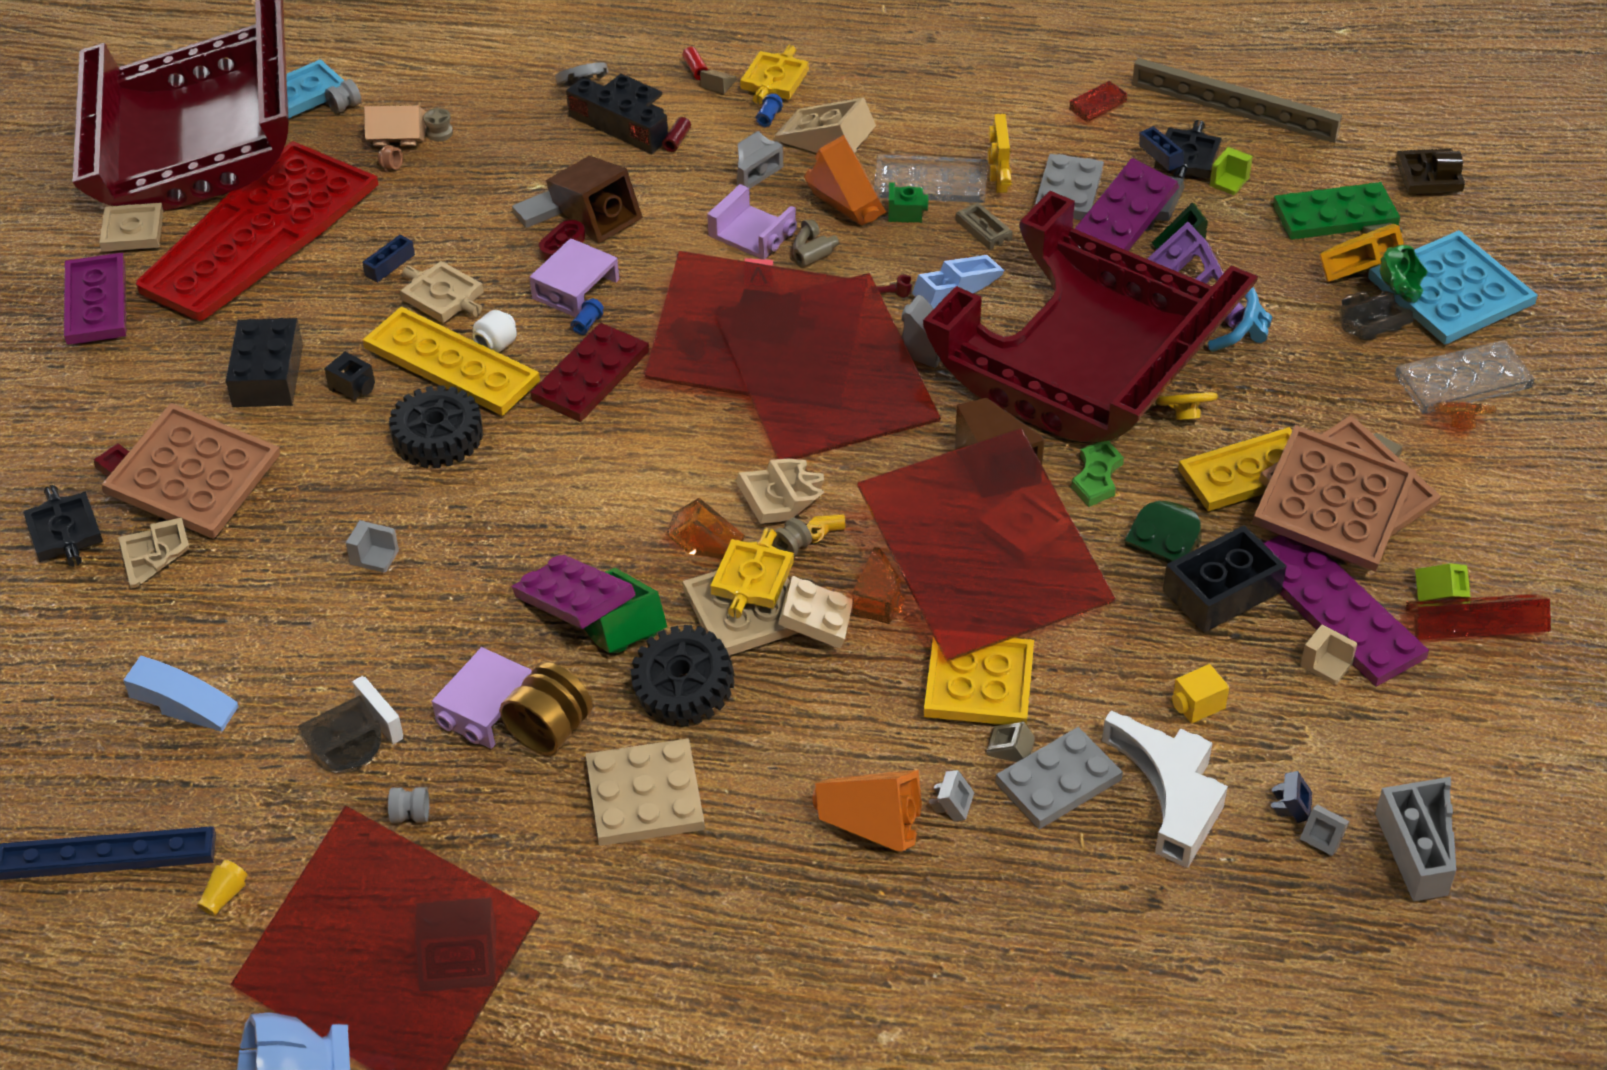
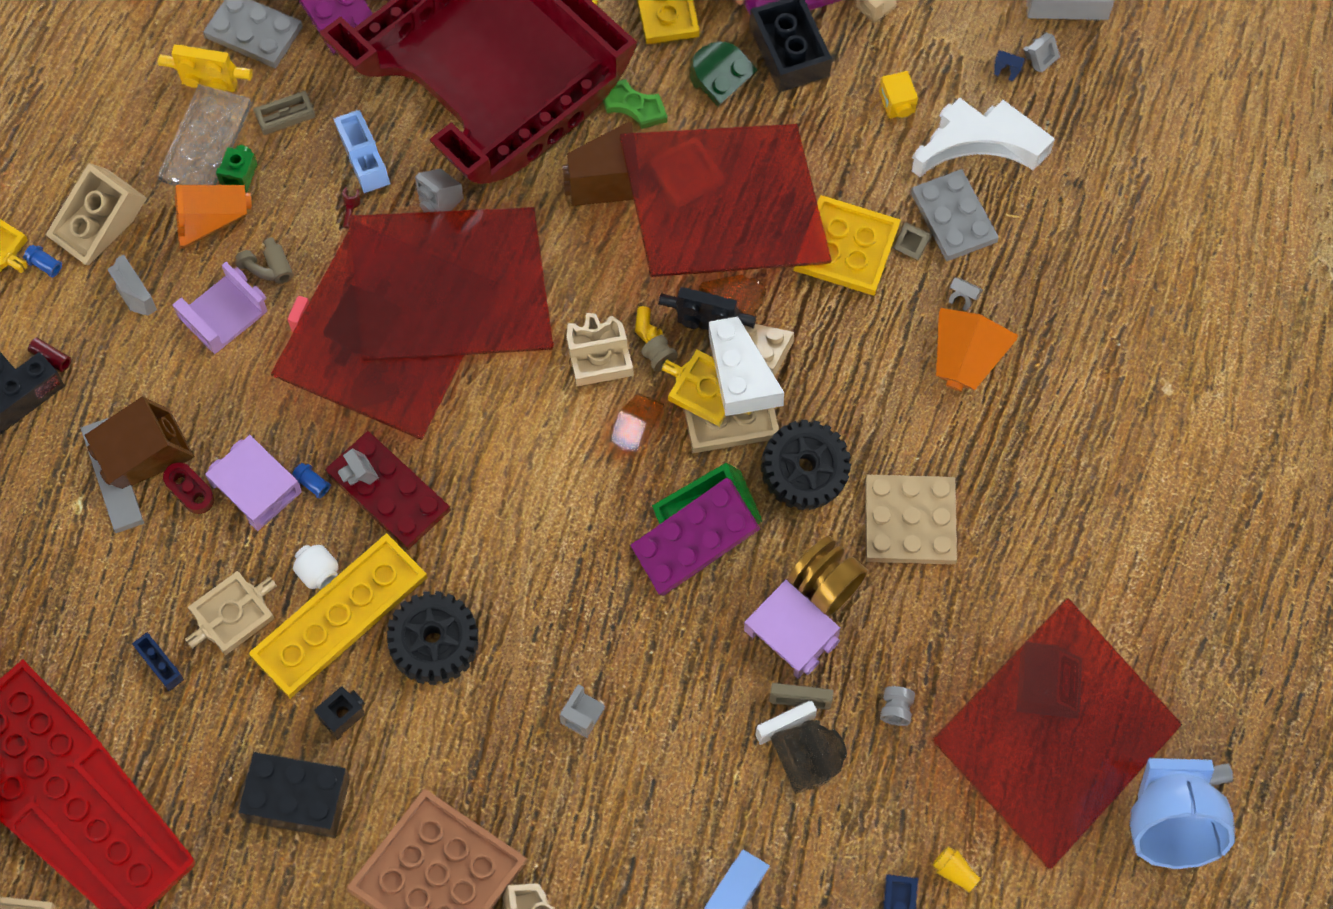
camera: 80 degrees left, 20 degrees up
(409, 718) = (797, 695): none -> dark tan tile
(598, 332) = (357, 468): none -> light grey tile
(767, 574) = (741, 370): none -> white wedge
(843, 556) = (699, 308): none -> black plate

